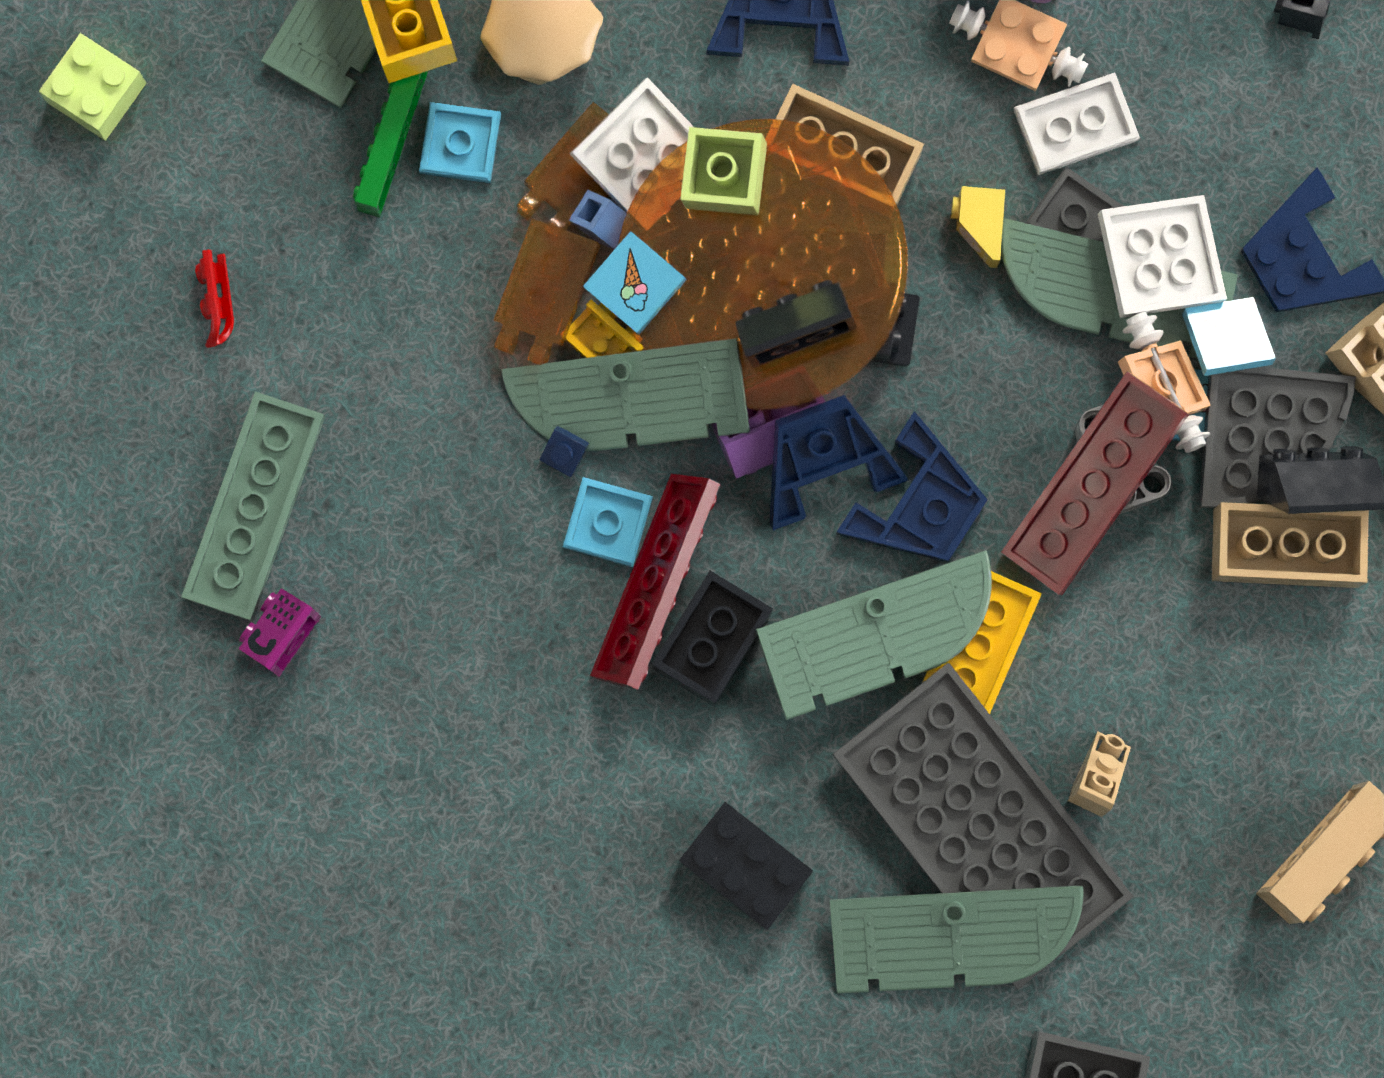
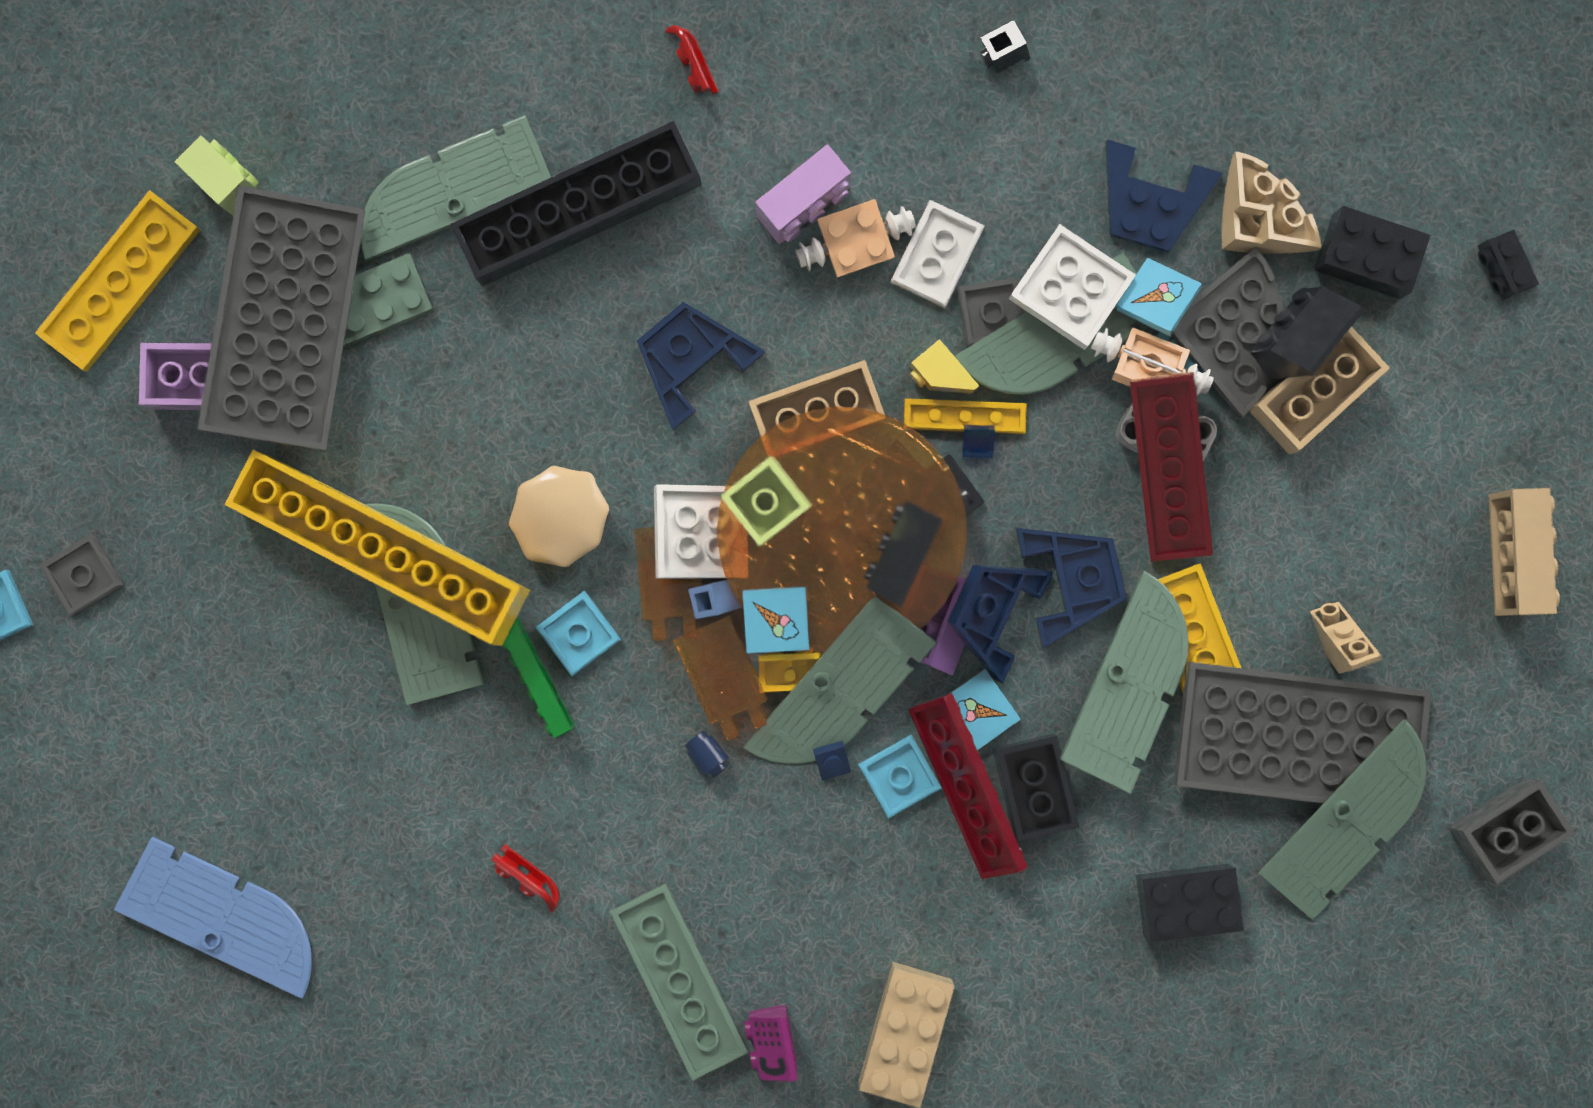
camera: 45 degrees left, 5 degrees up
(92, 86) = (319, 825): yellowish green brick -> none
(395, 736) = (906, 1034): none -> tan brick
(465, 343) = (707, 754): none -> dark blue brick
(733, 535) = (984, 708): none -> medium azure tile
(954, 309) = (978, 441): none -> clear blue tile
(964, 279) = (953, 415): none -> yellow tile

